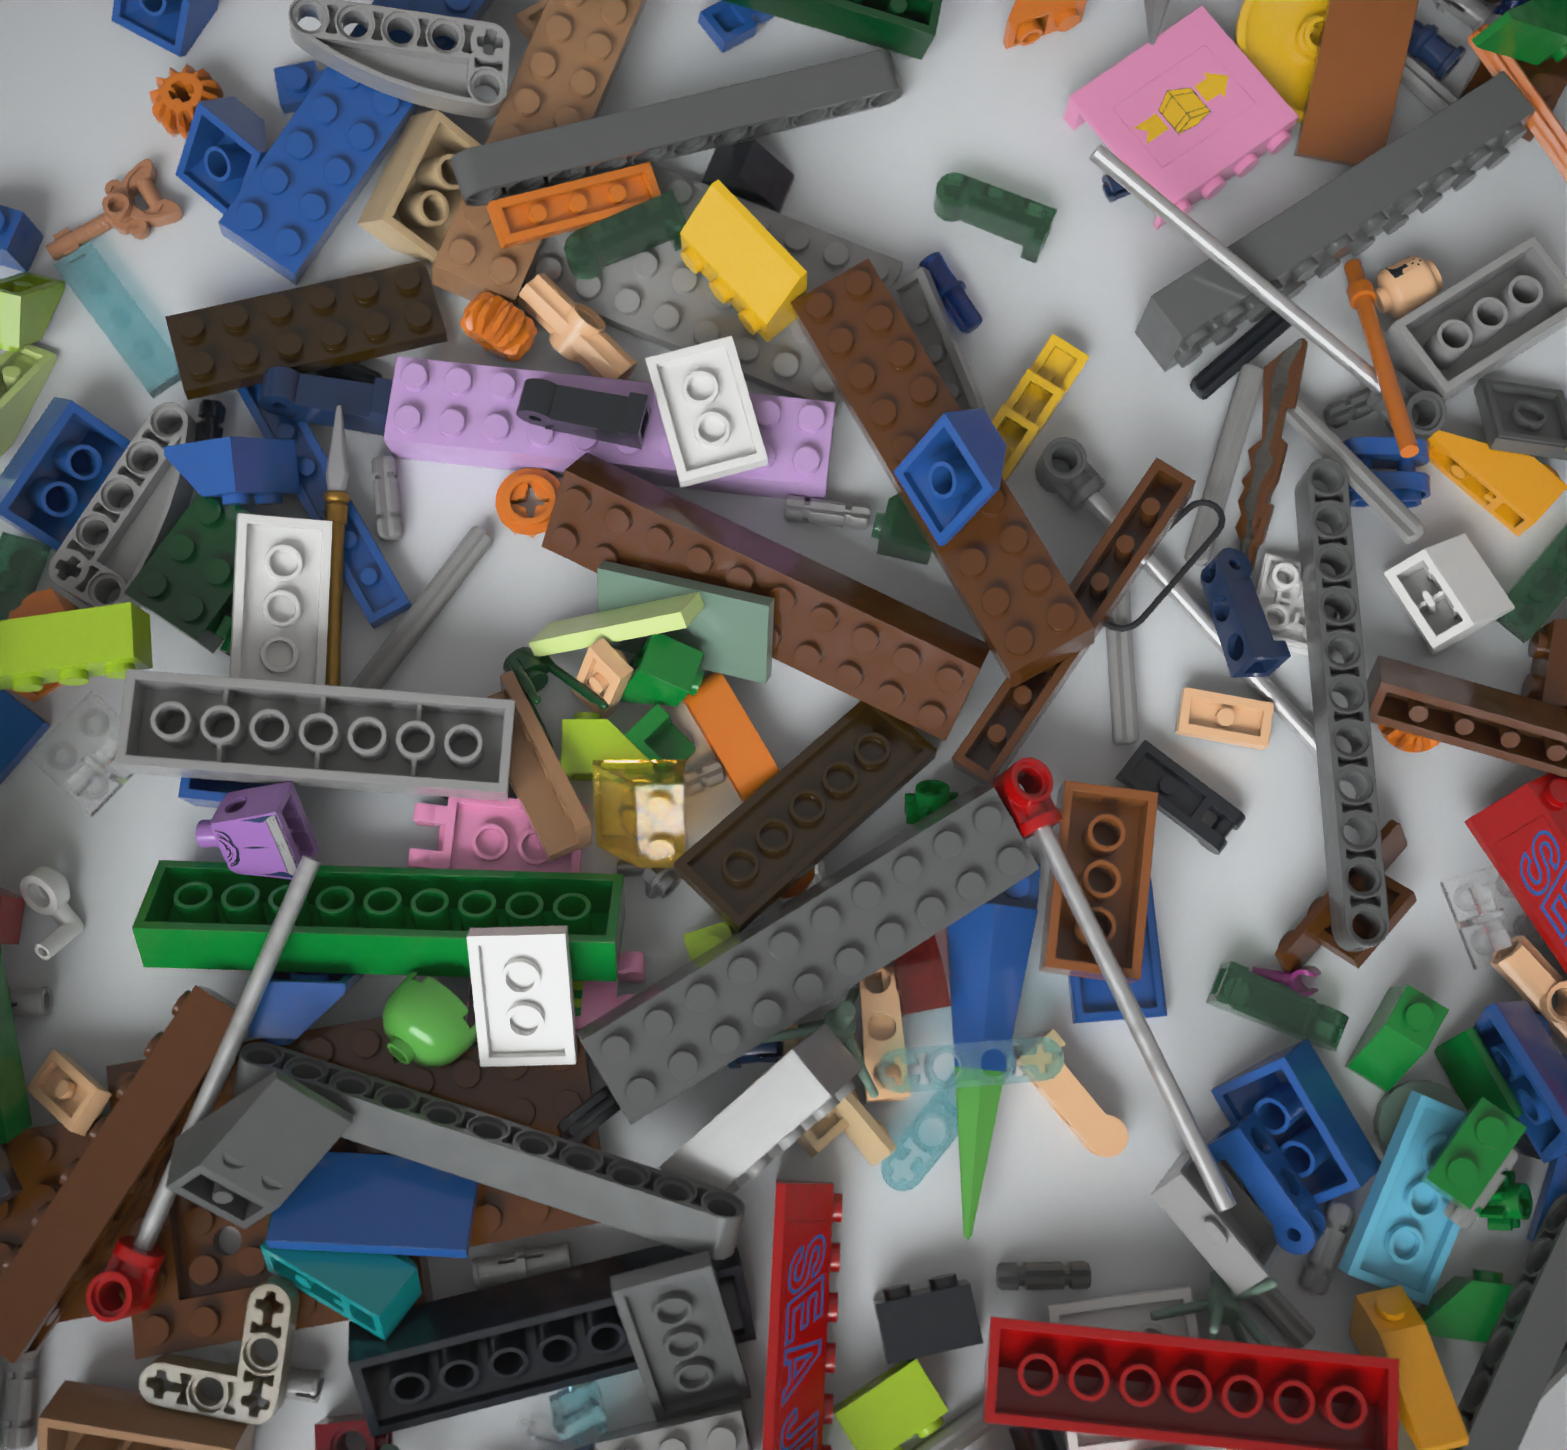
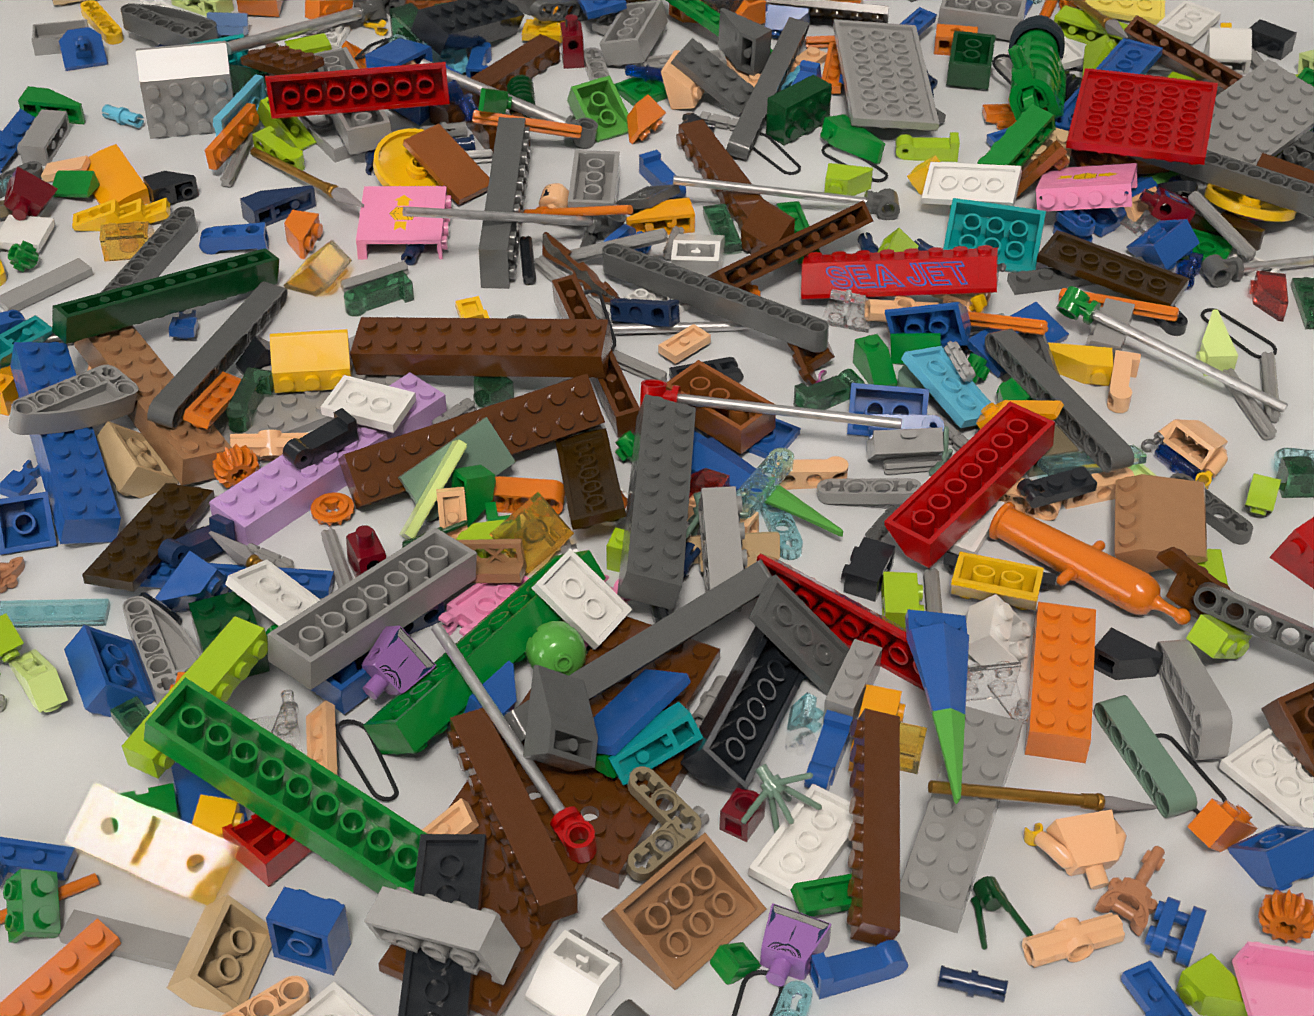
camera: 55 degrees left, 35 degrees down
(87, 949) = (356, 765): none -> black piece
(116, 827) = (322, 736): none -> light nougat plate
(451, 633) = (362, 548): none -> dark red torso
(953, 471) = (495, 321): blue slope -> none
(979, 97) = (320, 271): none -> clear yellow slope
(1033, 176) = (364, 278): none -> light grey axle
(1085, 1219) = (839, 490): none -> light grey beam
(1470, 523) = (669, 244): none -> light grey axle
(1473, 1153) = (943, 345): green brick -> none

